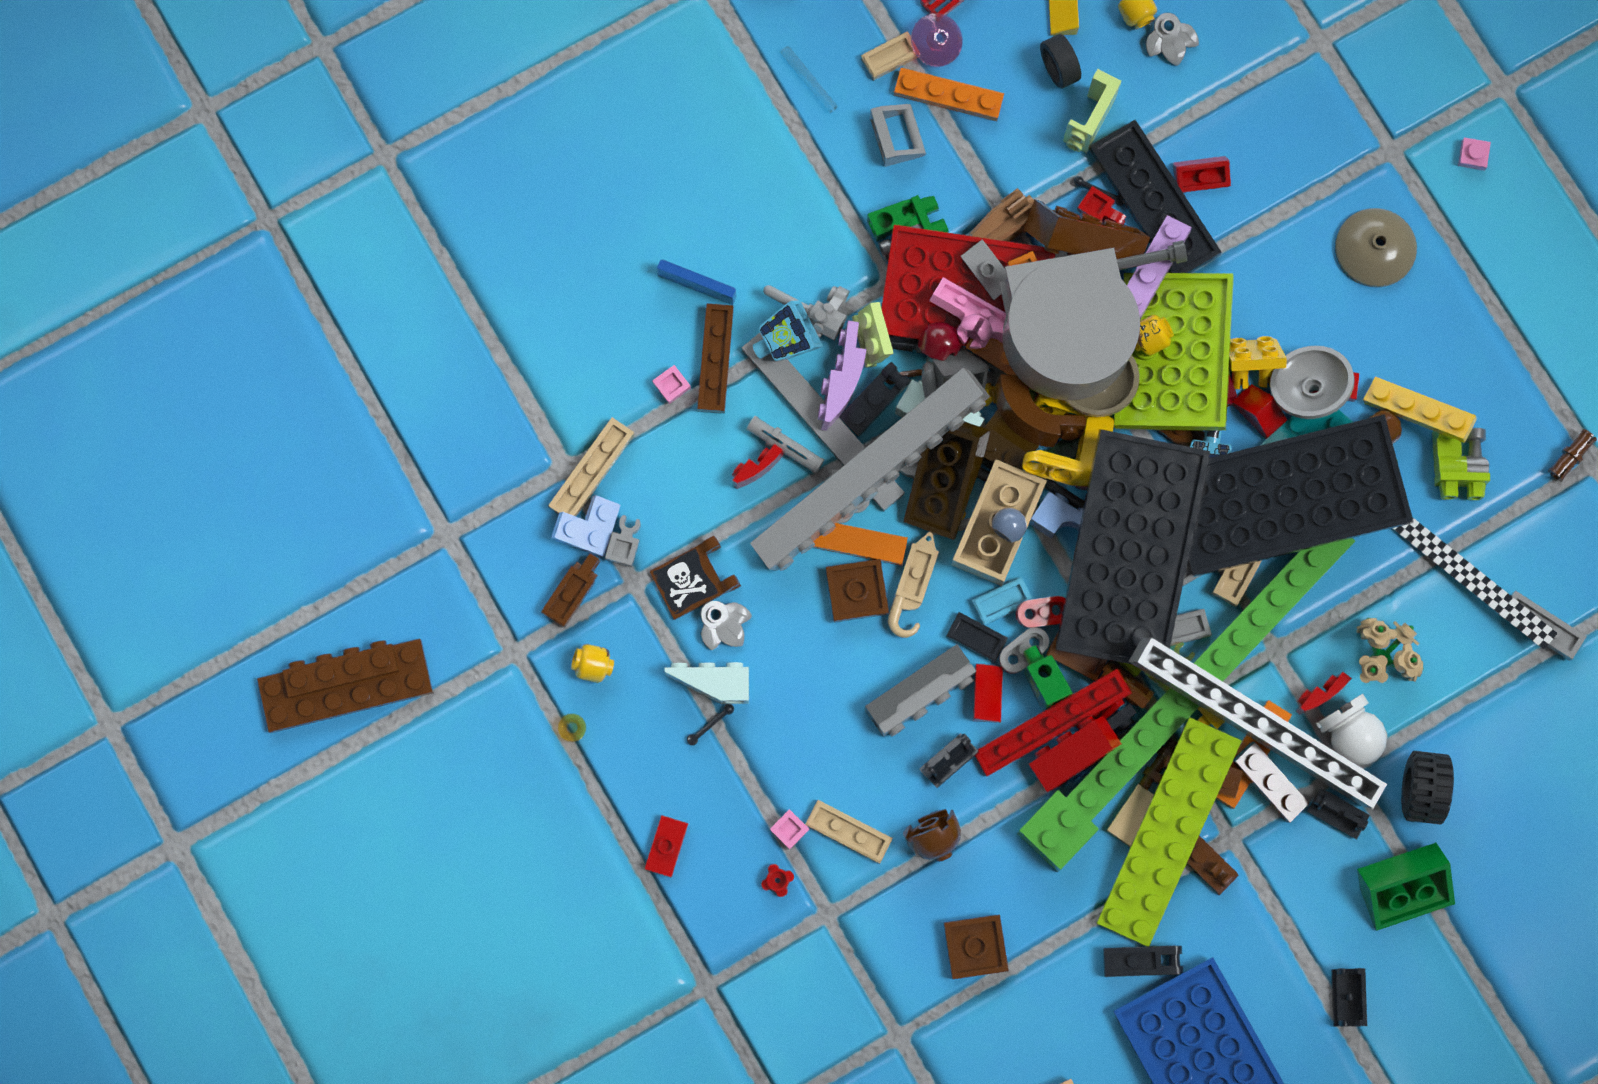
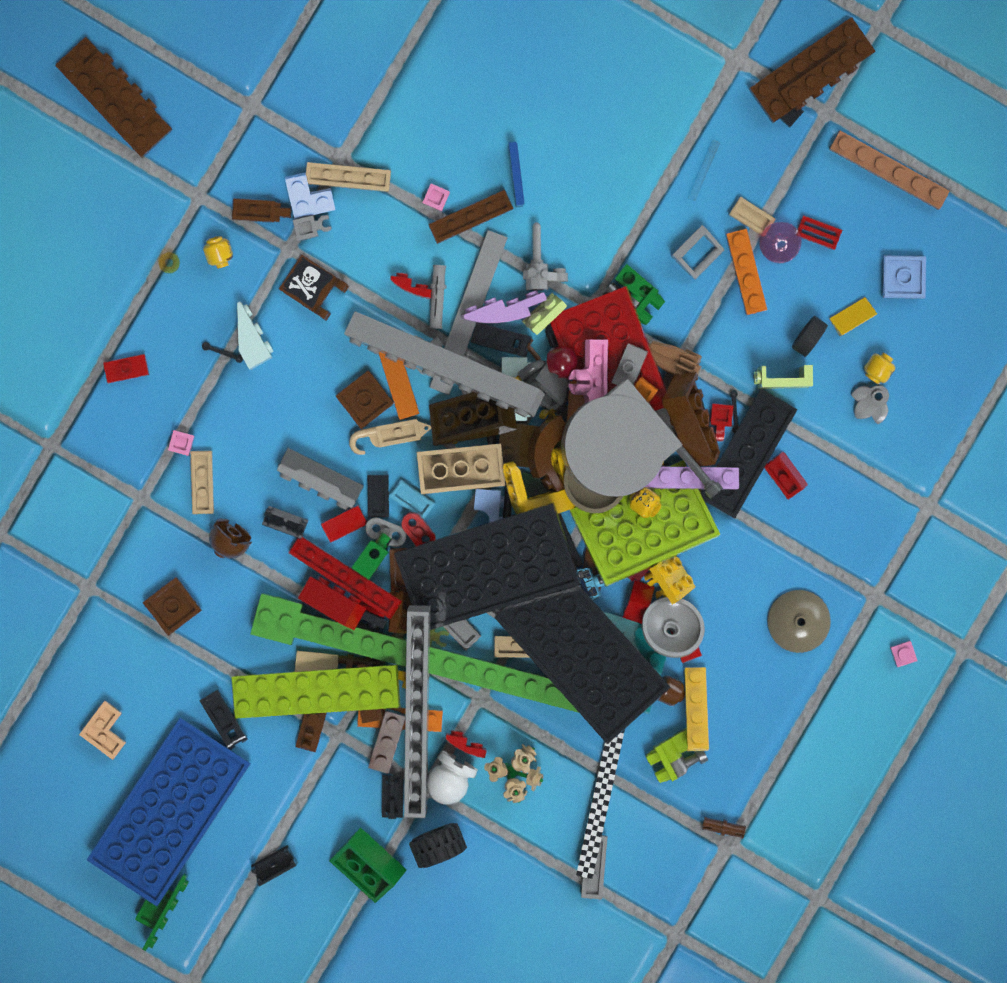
camera: 65 degrees right, 10 degrees up
(726, 627) = (291, 326): light grey plate -> none
(770, 884) = (139, 449): red plate -> none
(787, 334) = (510, 257): torso -> none
(1009, 524) = (459, 477): sand blue piece -> none

